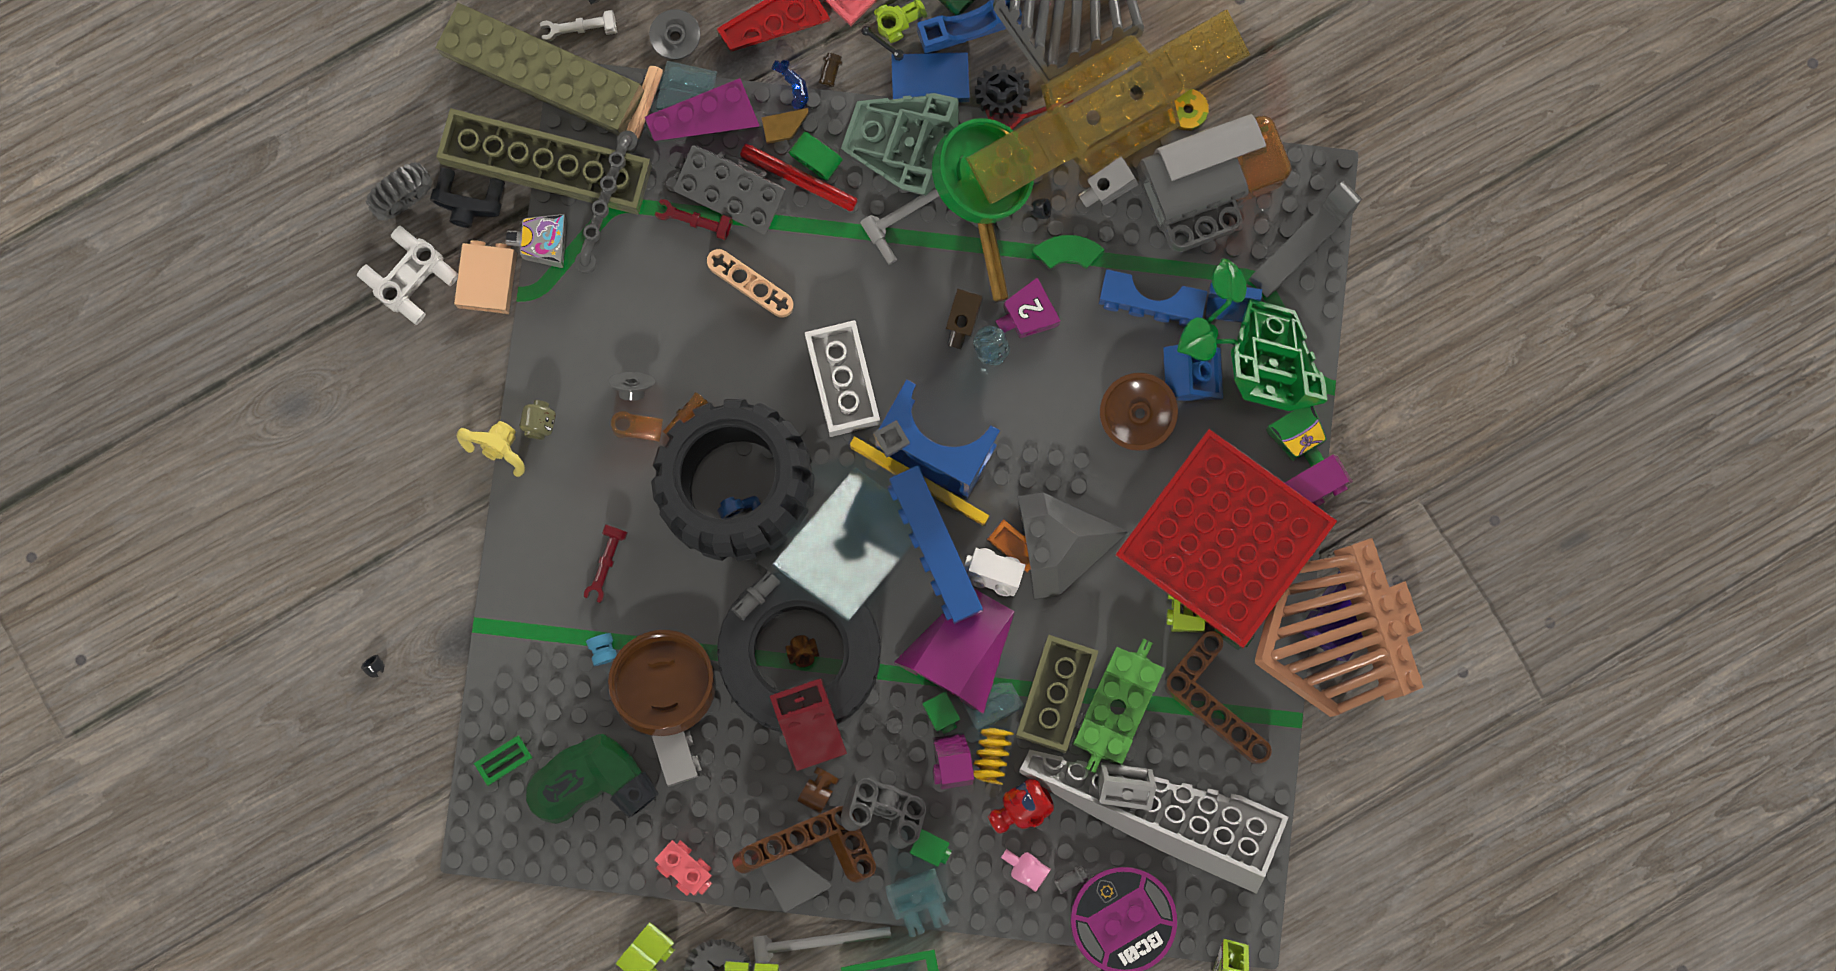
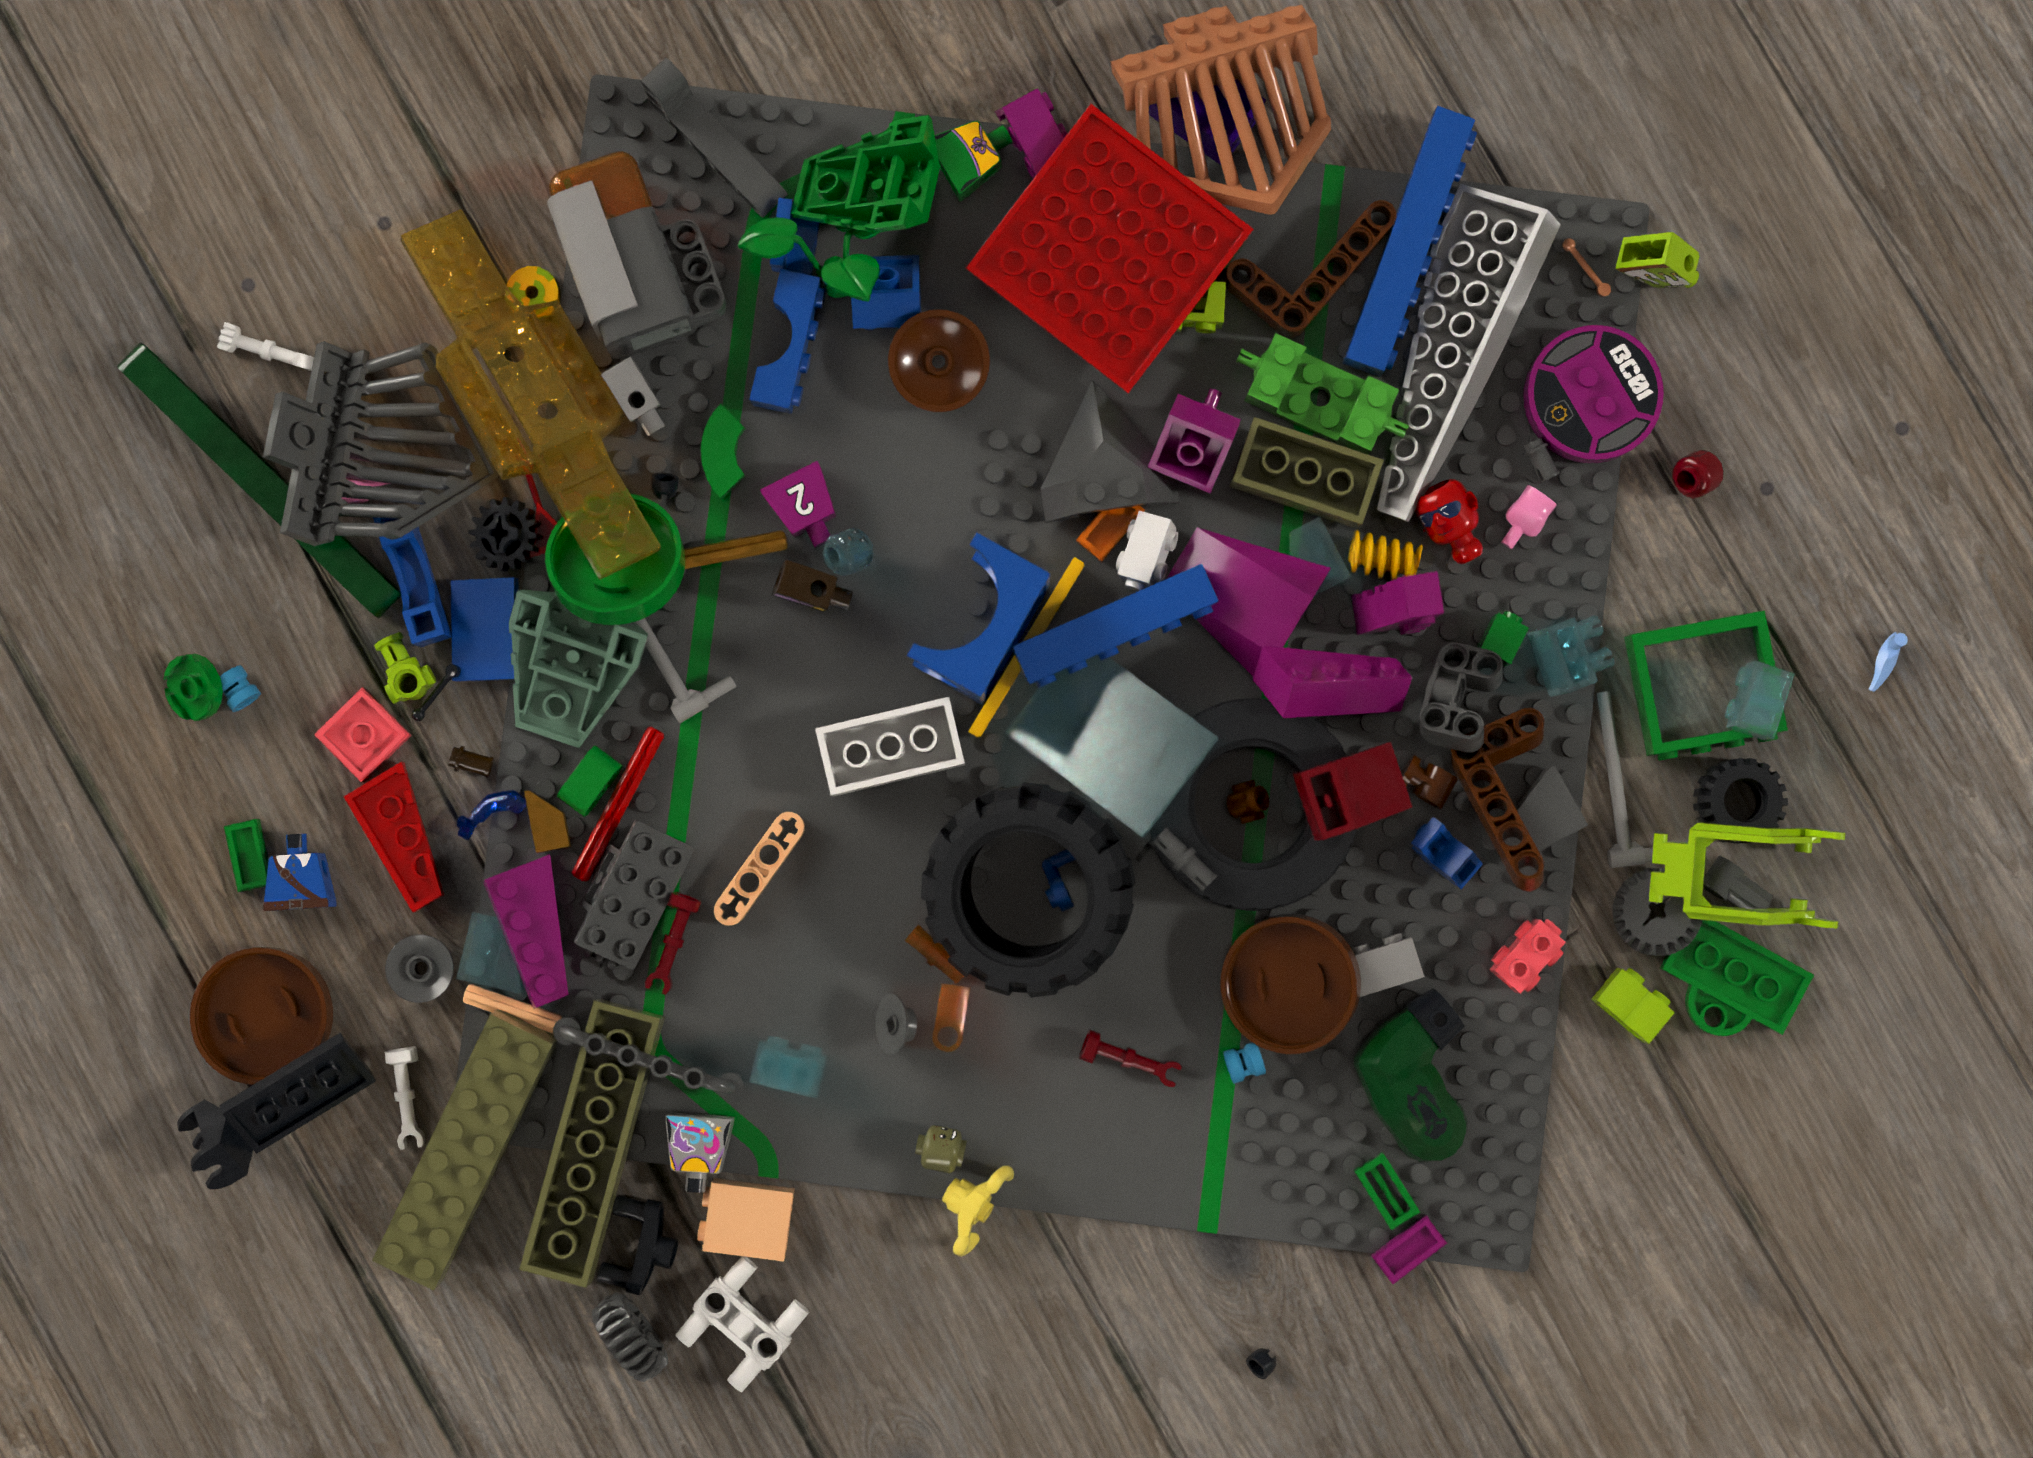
camera: 85 degrees left, 5 degrees up
(458, 778) = (1409, 1249): none -> magenta tile
(599, 306) = (789, 1067): none -> clear light blue brick
(763, 803) = (1445, 853): none -> blue brick
(891, 438) = (990, 673): dark grey tile -> none
(892, 710) = (1330, 682): none -> magenta wedge
(941, 713) = (1329, 622): green brick -> none
(1079, 606) = (1195, 441): none -> magenta piece
(1125, 791) = (1436, 385): light grey tile -> none
(1241, 903) = (1603, 289): none -> nougat hinge
(1242, 775) = (1409, 242): none -> blue brick

